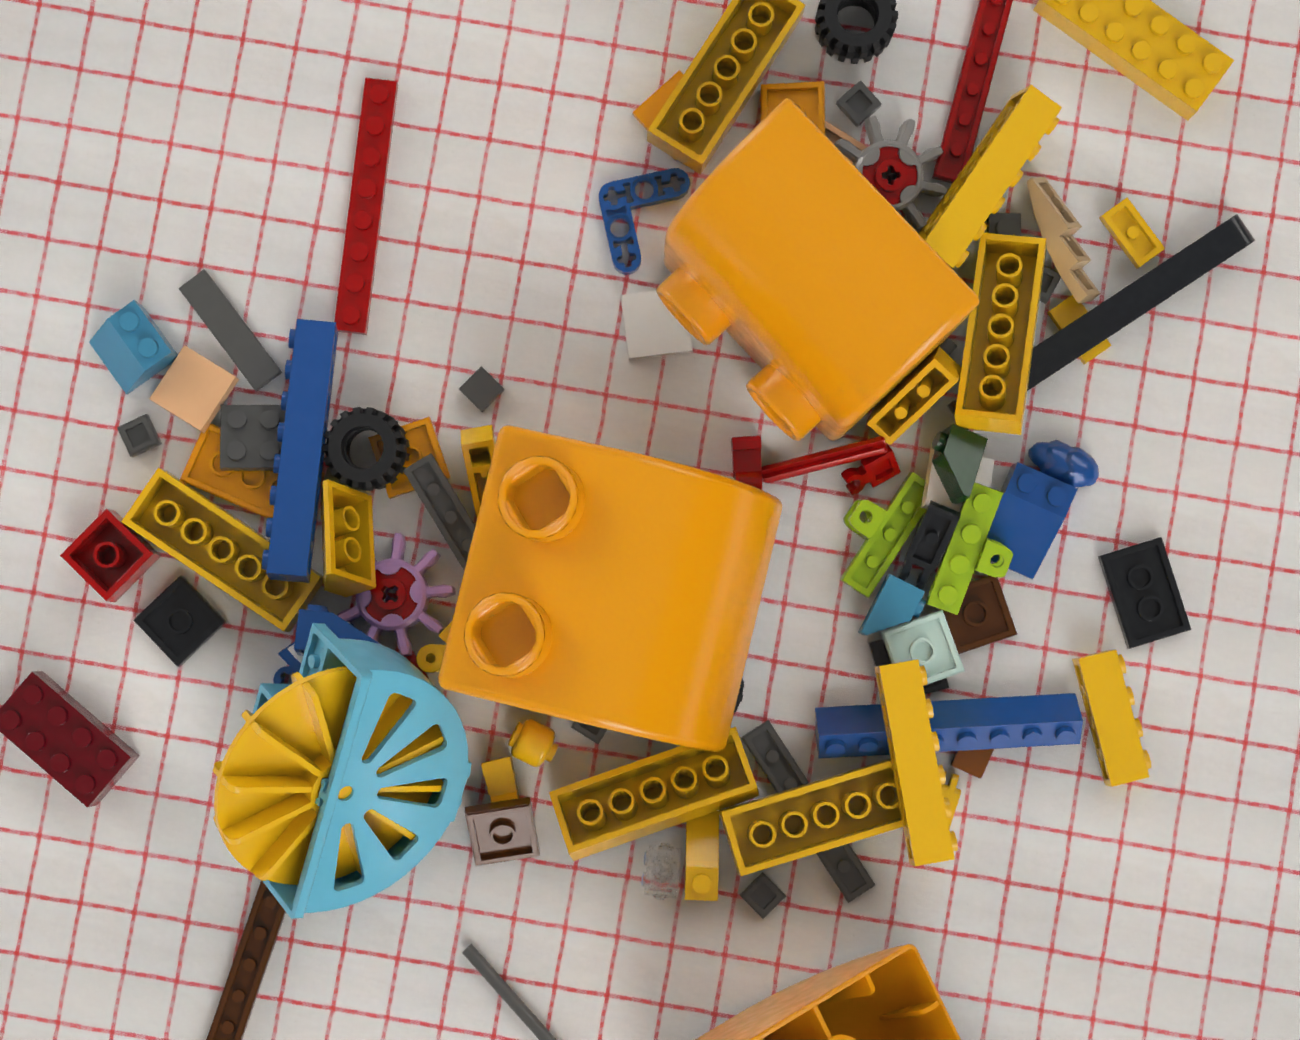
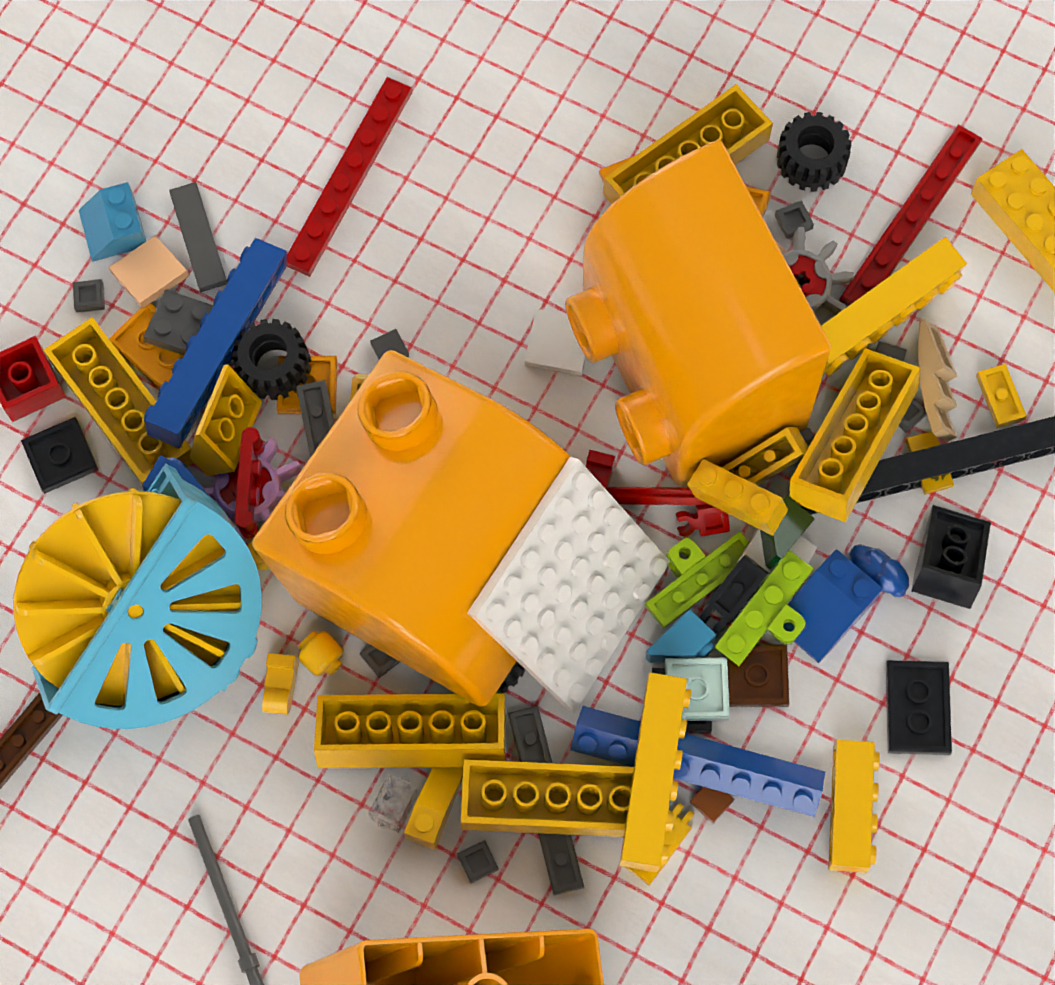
camera: 25 degrees right, 15 degrees down
(391, 583) = (247, 492): none -> red plate
(502, 831) = (264, 720): tile -> none
(622, 210) = (561, 244): blue beam -> none
(769, 601) = (570, 585): none -> white plate
(906, 447) = (738, 497): none -> yellow brick
(1133, 426) = (952, 557): none -> black slope

